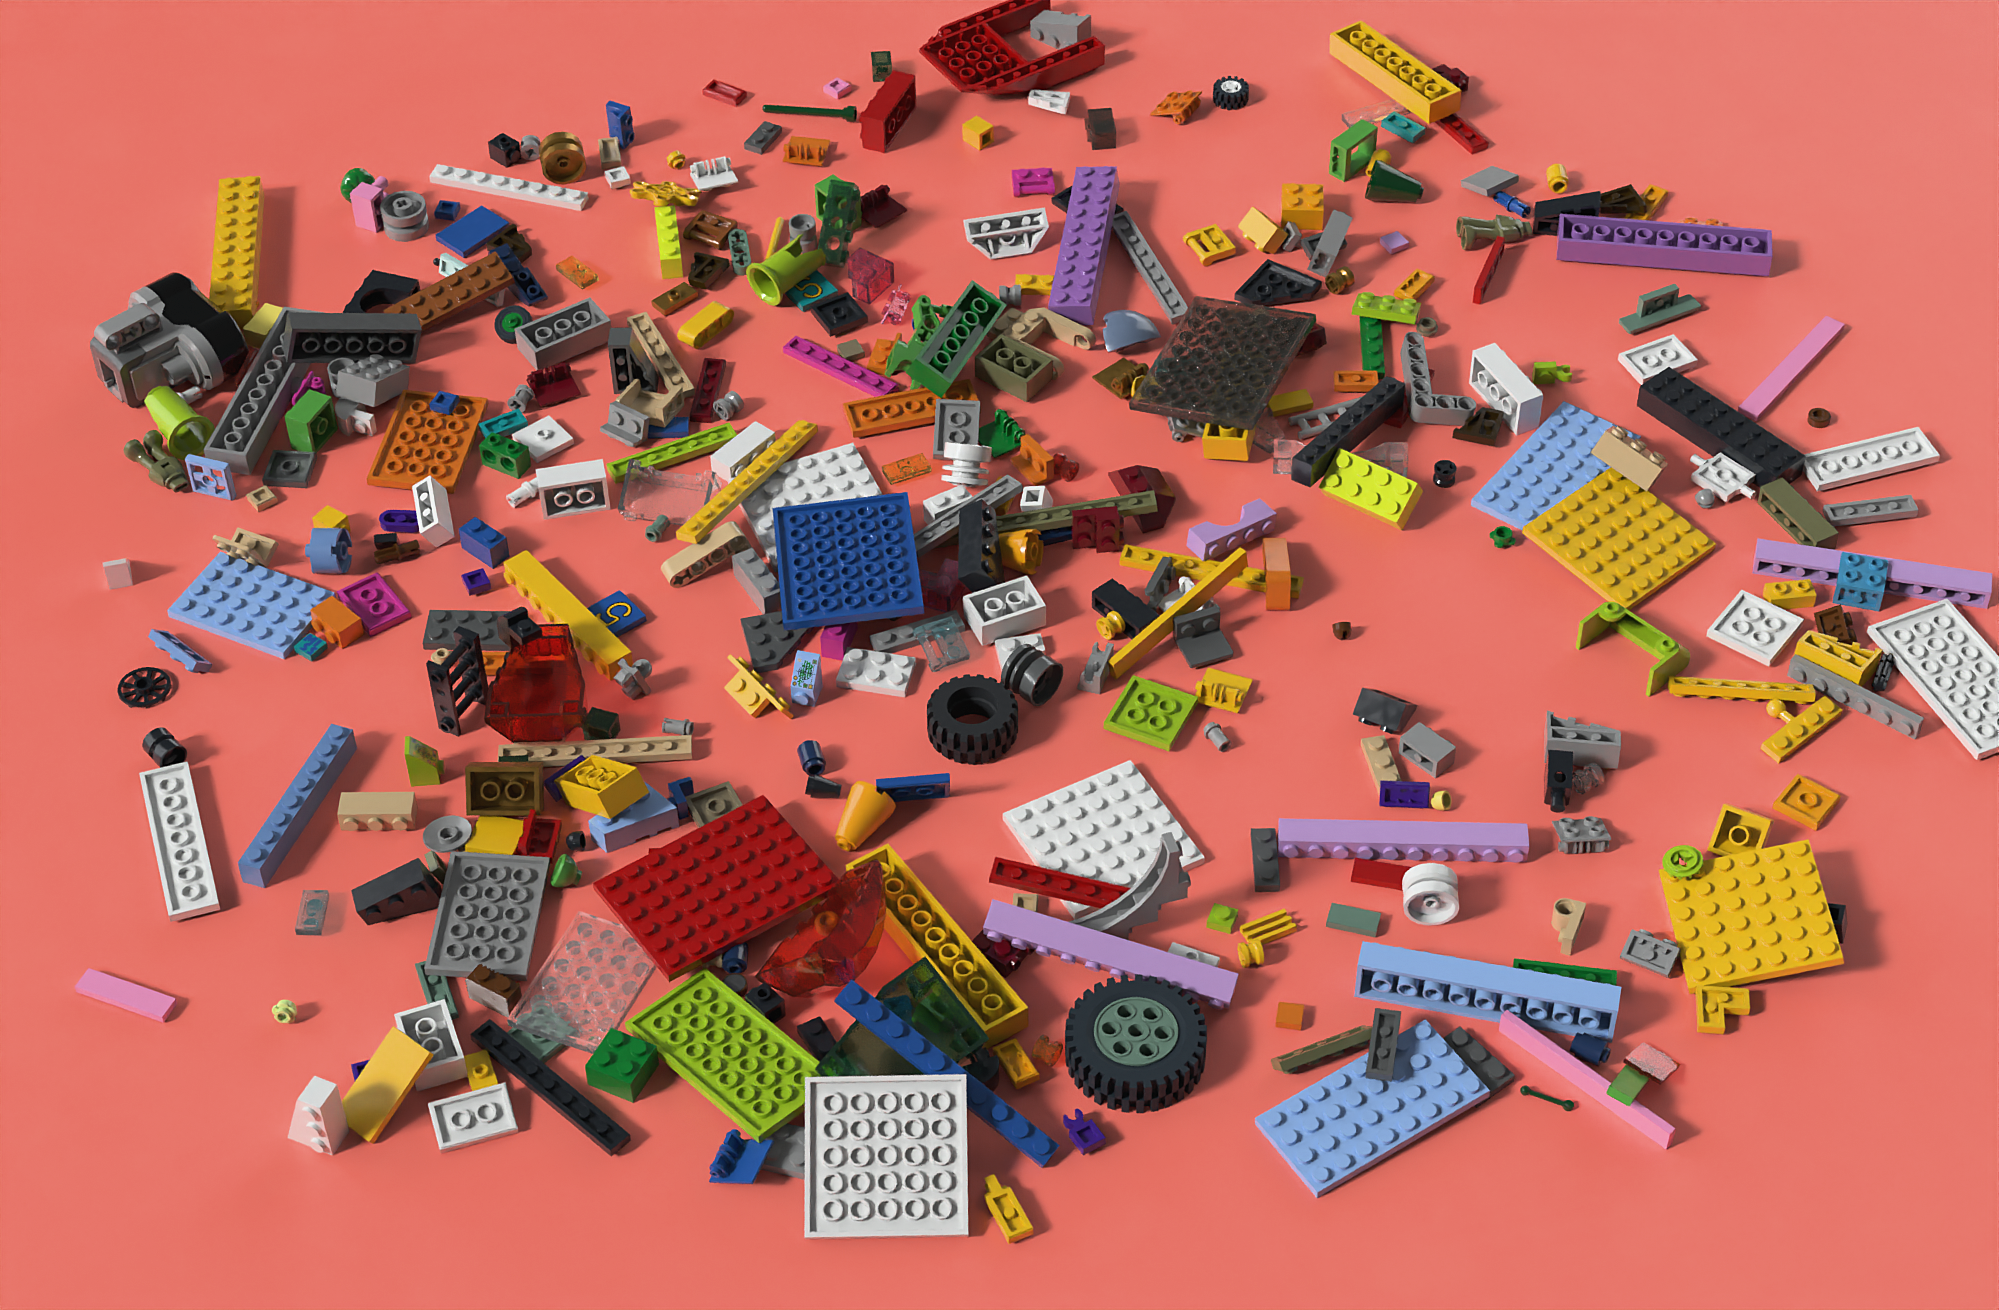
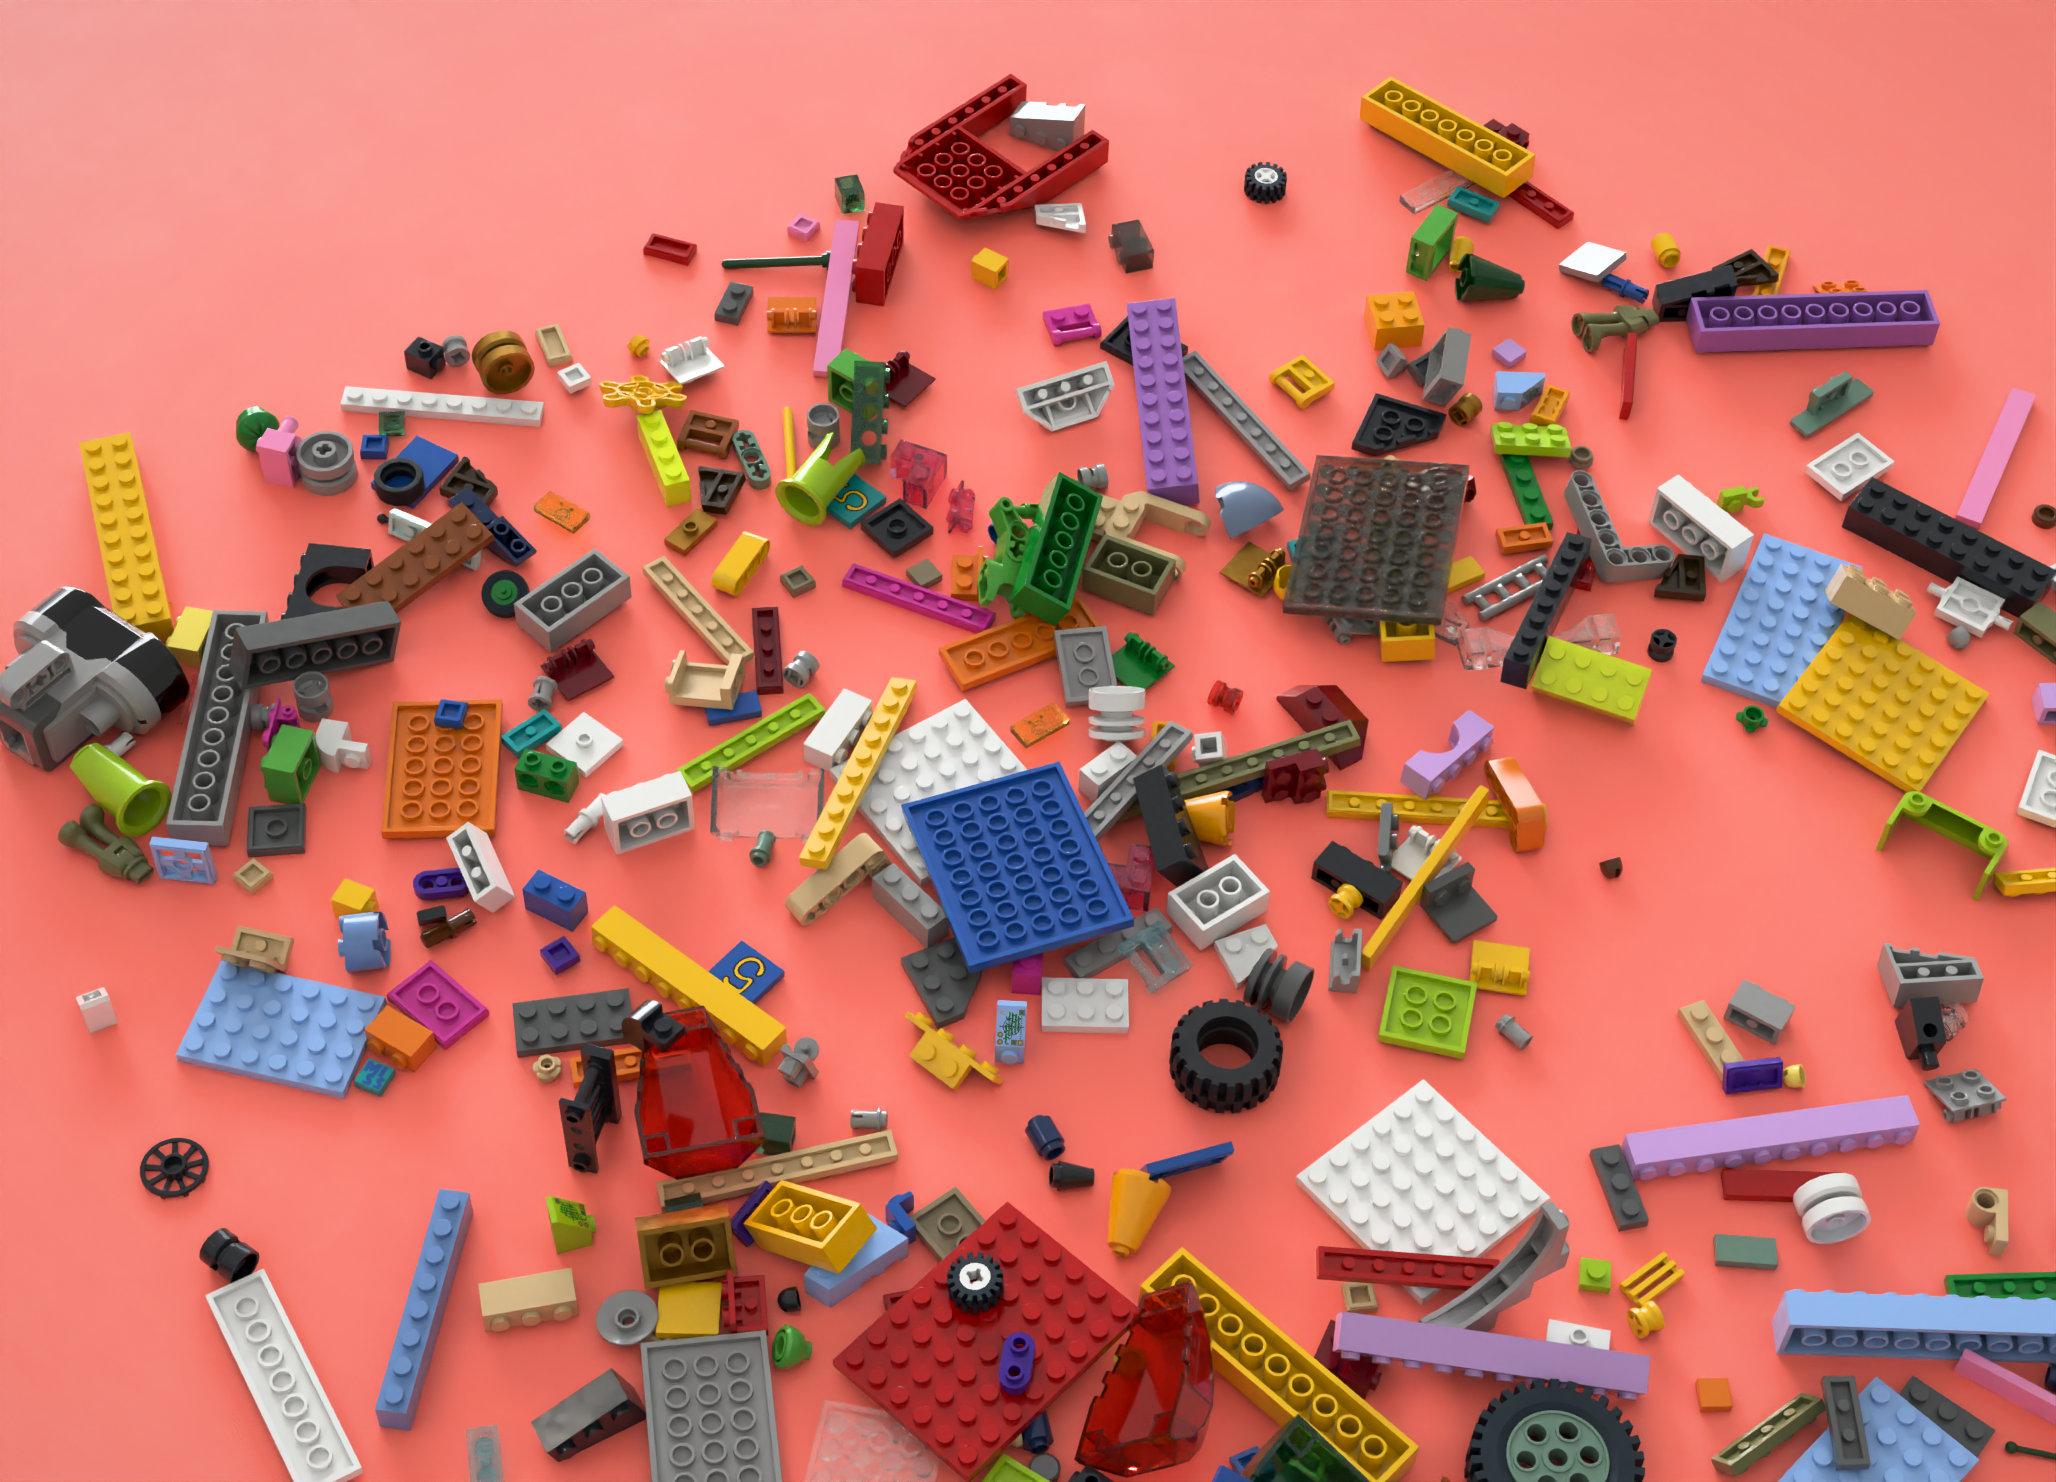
camera: 15 degrees left, 5 degrees up
(179, 651) = (208, 1110): medium blue plate -> none
(373, 380) = (355, 697): light grey brick -> none
(436, 866) = (627, 1367): olive tile -> none
(458, 244) = (399, 467): none -> black tyre
(465, 194) = (392, 423): none -> clear green plate
(620, 123) = (560, 306): blue bracket -> none
(626, 425) = (685, 713): light grey bracket -> none
(630, 361) = (670, 631): dark grey wedge -> none
(715, 842) = (977, 1293): none -> black wheel
(729, 902) = (1017, 1361): none -> dark purple plate
(748, 344) = (797, 581): none -> dark tan tile
(846, 135) = (836, 295): none -> bright pink tile
(1034, 284) = (1118, 457): yellow plate -> none
(1034, 461) = (1189, 695): orange bracket -> none
(1179, 105) = (1209, 204): orange hinge -> none
(1262, 230) = (1359, 357): yellow brick -> none
(1383, 709) = (1694, 967): black slope -> none
(1389, 269) = (1516, 389): none -> light blue slope

